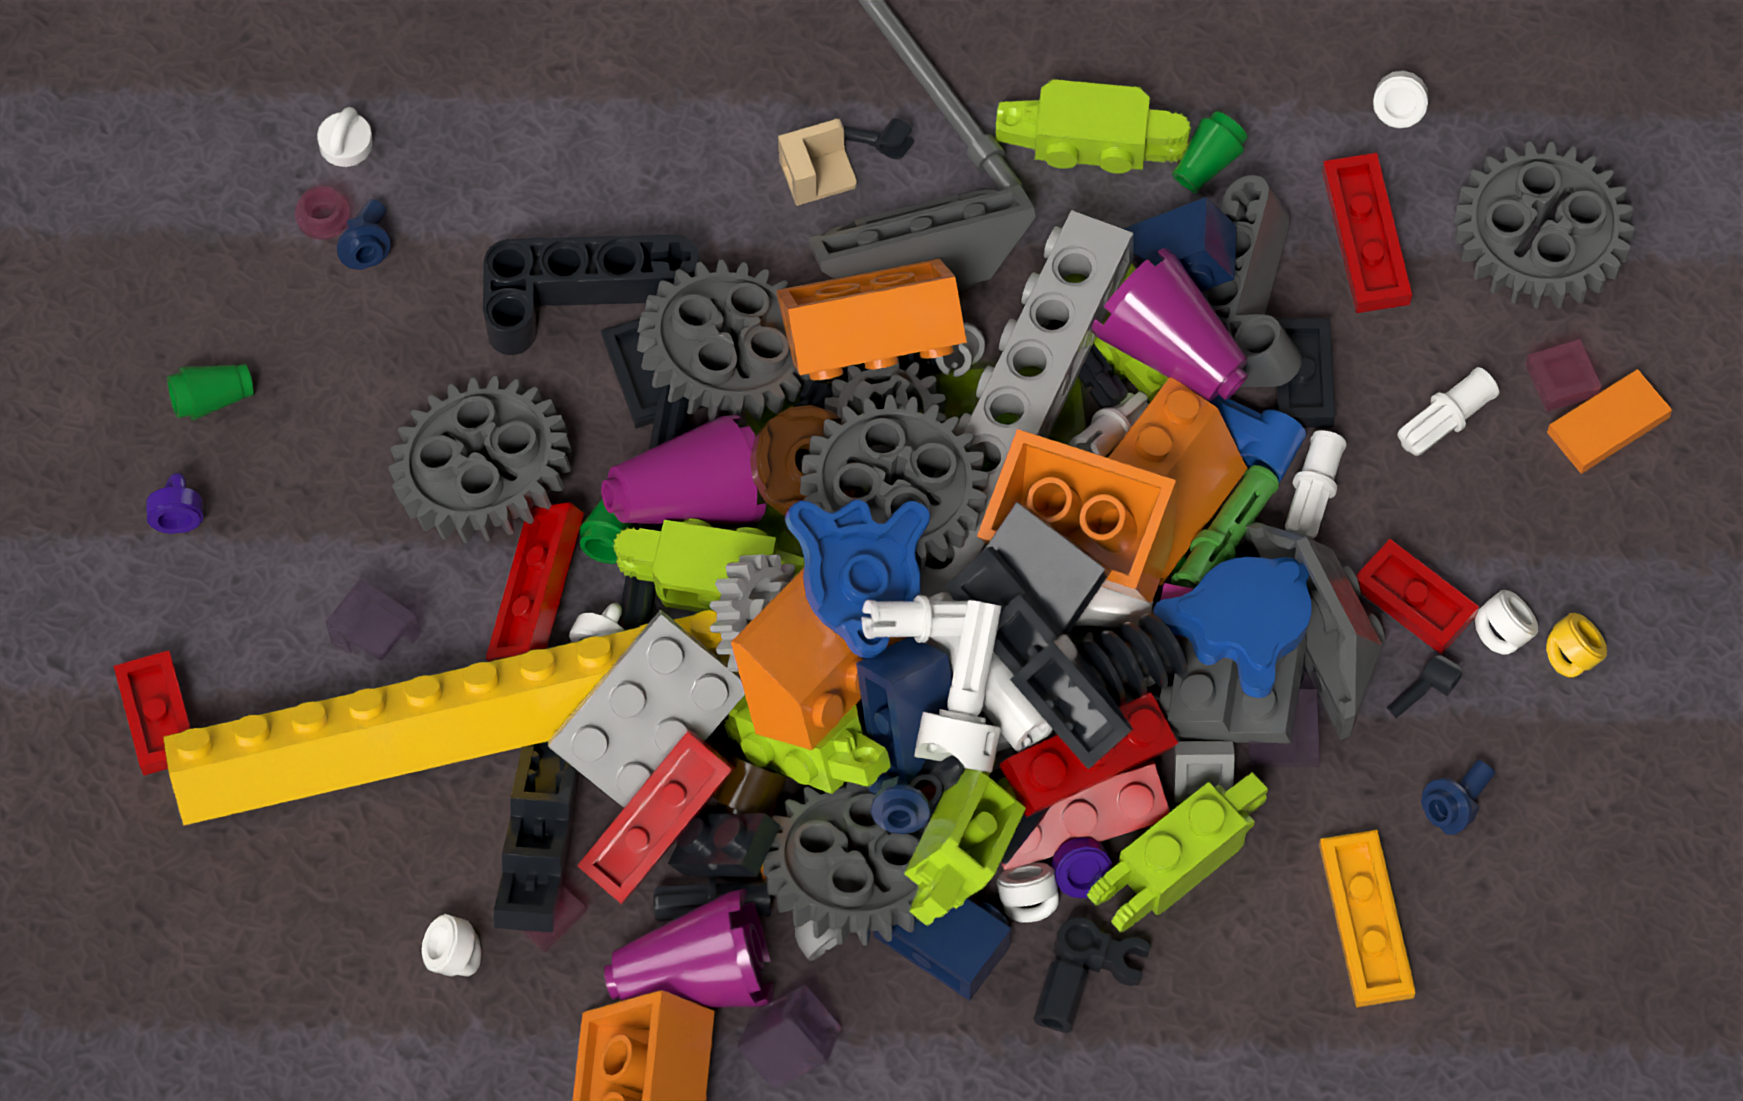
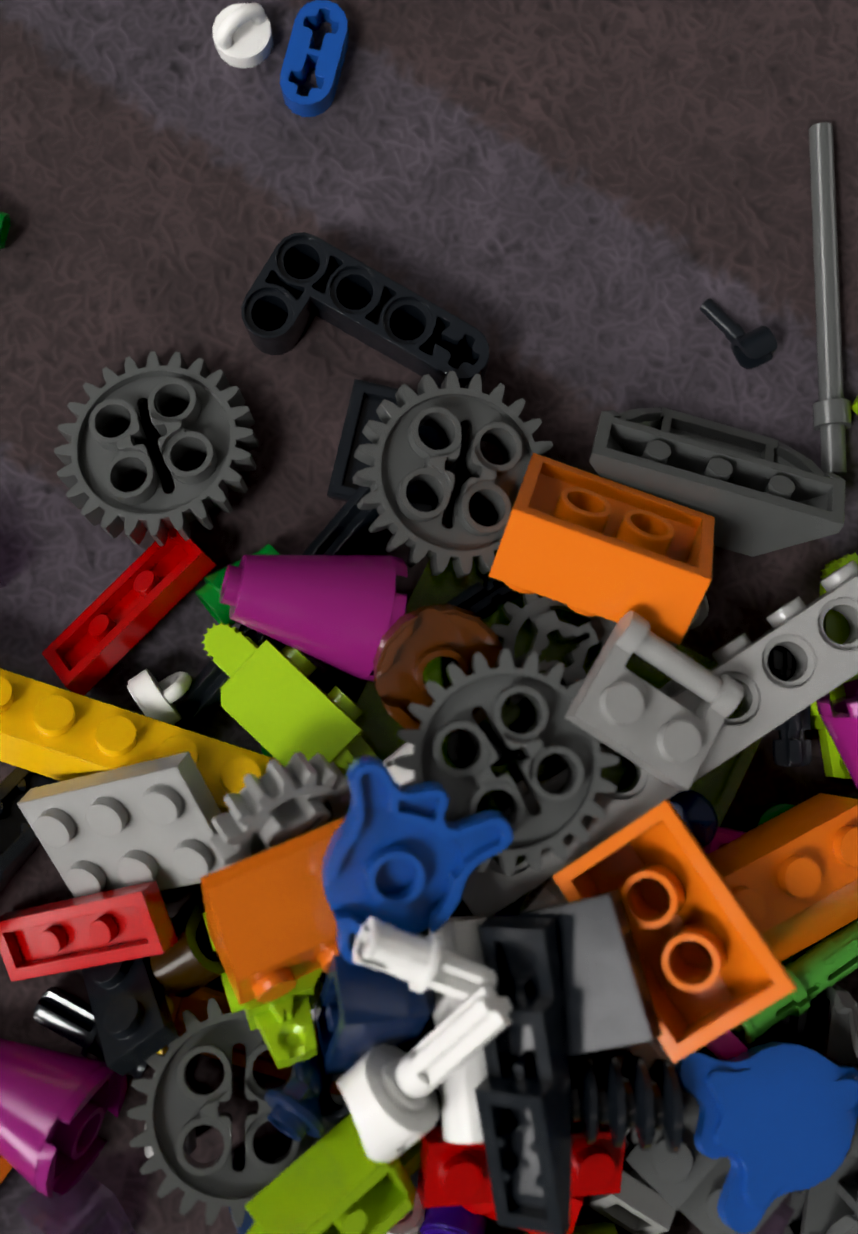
camera: 30 degrees right, 20 degrees up
(317, 199) = (168, 84): clear pink plate -> none
(364, 238) = (190, 150): dark blue plate -> none
(425, 121) = (326, 61): none -> blue beam
(816, 162) = (664, 327): tan panel -> none
(971, 397) = (643, 720): none -> light grey plate
(1110, 425) = (767, 792): white axle -> none

